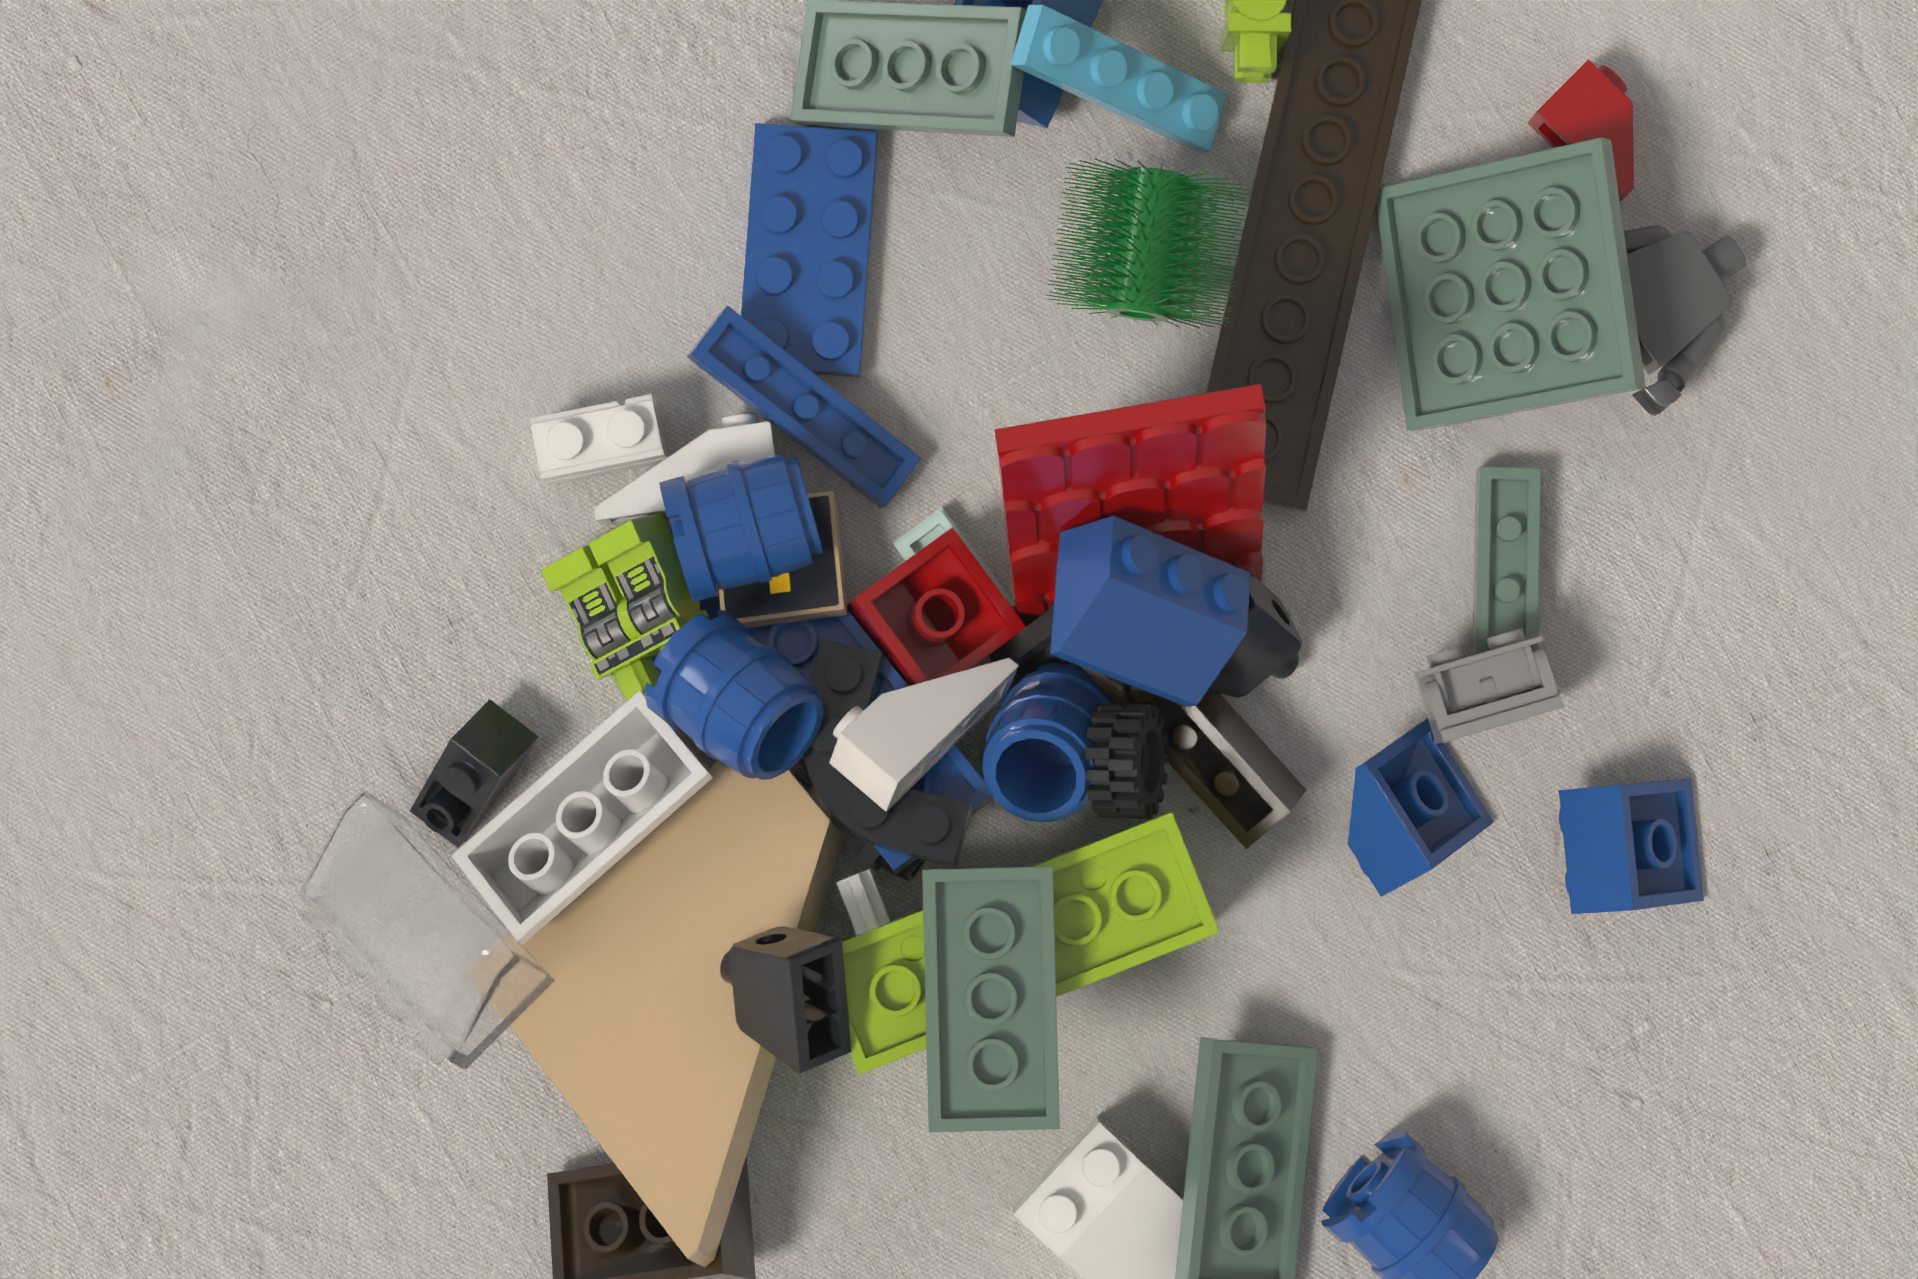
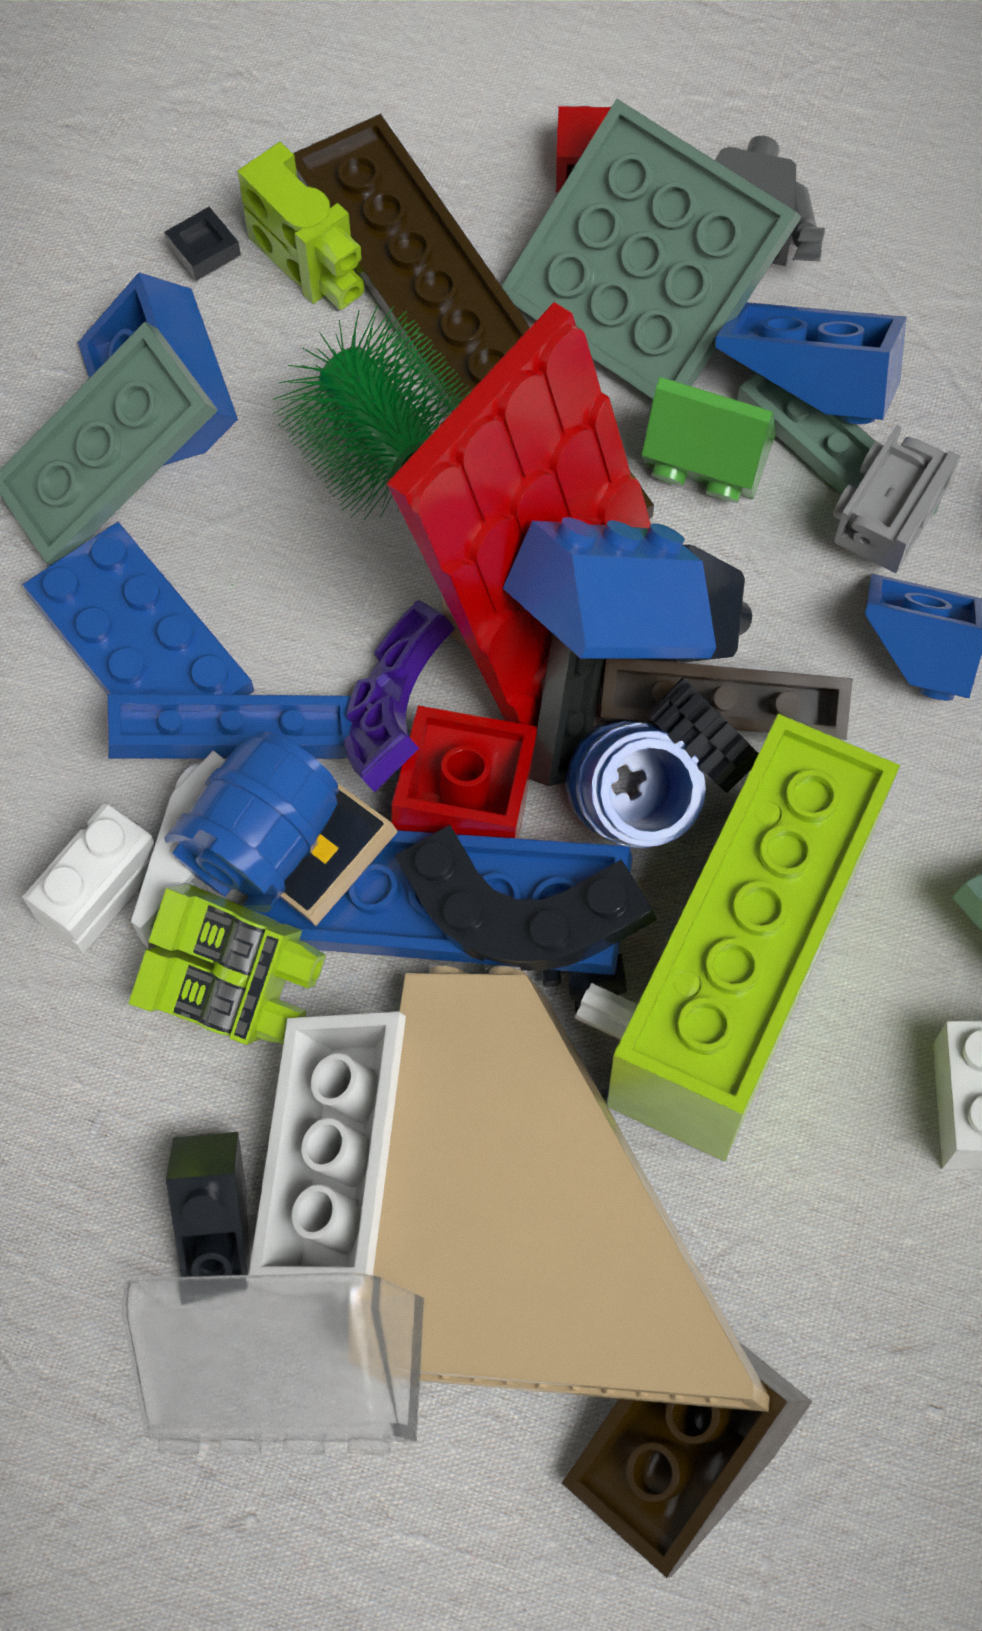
camera: 40 degrees left, 20 degrees down
(735, 697) = (367, 937): blue piece -> none
(791, 995) = (627, 1098): black torso -> none
(913, 728) = (525, 844): white slope -> none
(928, 493) = (380, 702): none -> dark purple tile
(990, 999) = (788, 955): sand green plate -> none
(1118, 78) = (247, 334): medium azure plate -> none
(1397, 498) = (707, 440): none -> bright green slope
(1560, 504) = (823, 356): none -> blue slope

